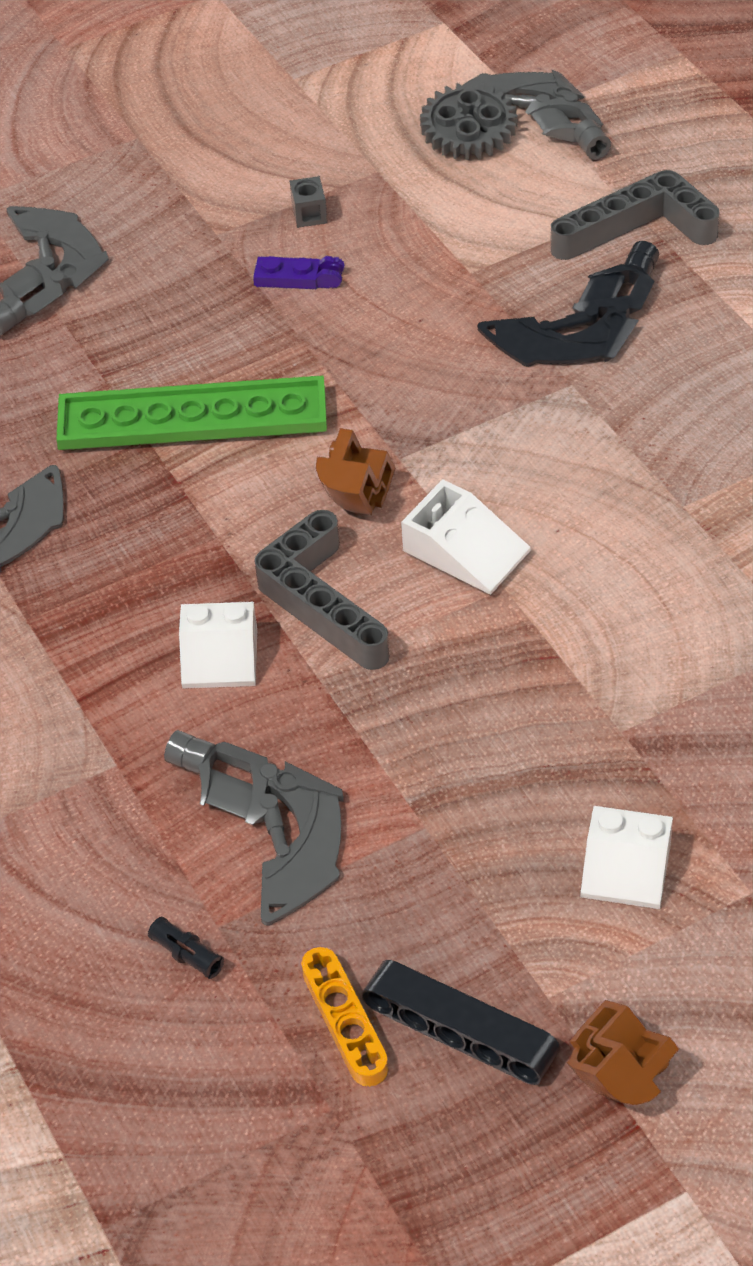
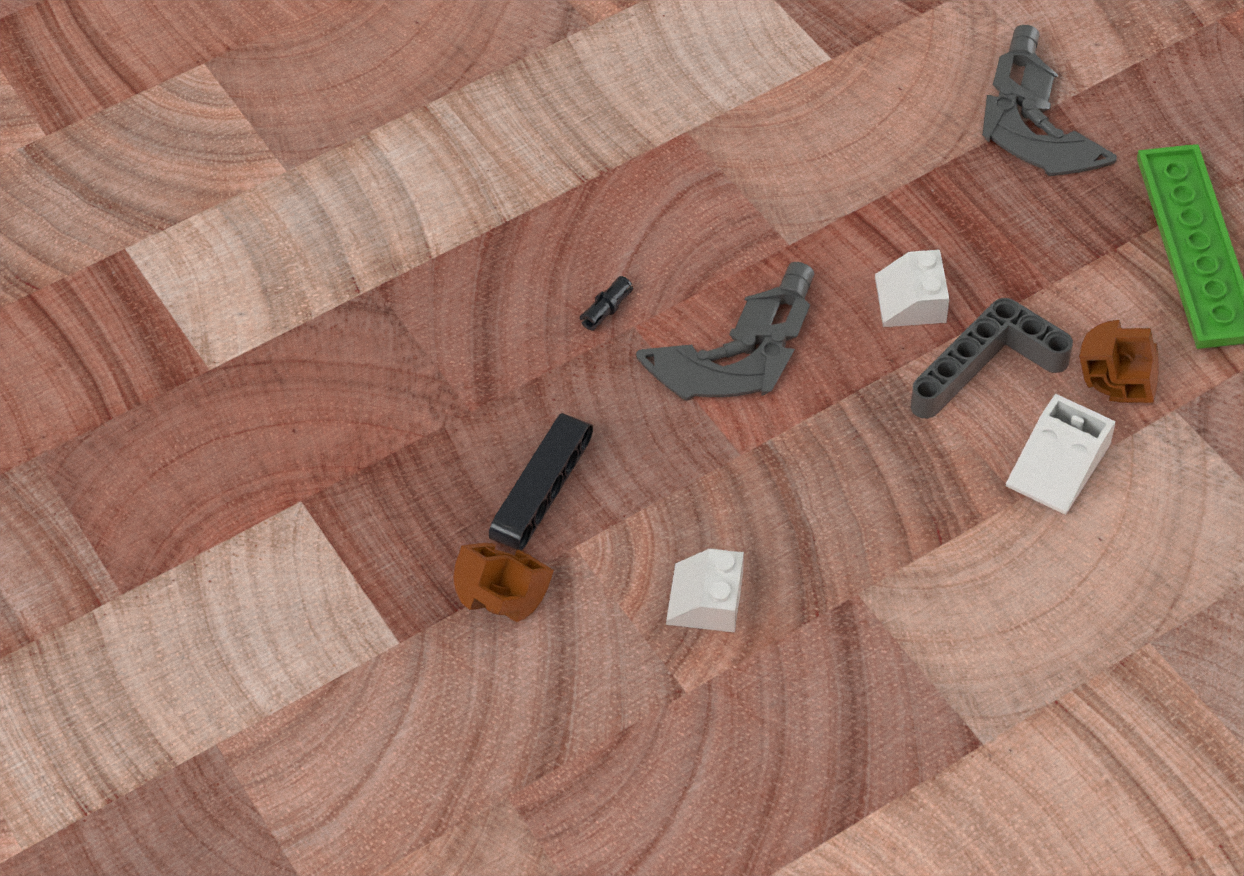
camera: 85 degrees right, 5 degrees up
(347, 1014) = (547, 405): light orange beam -> none

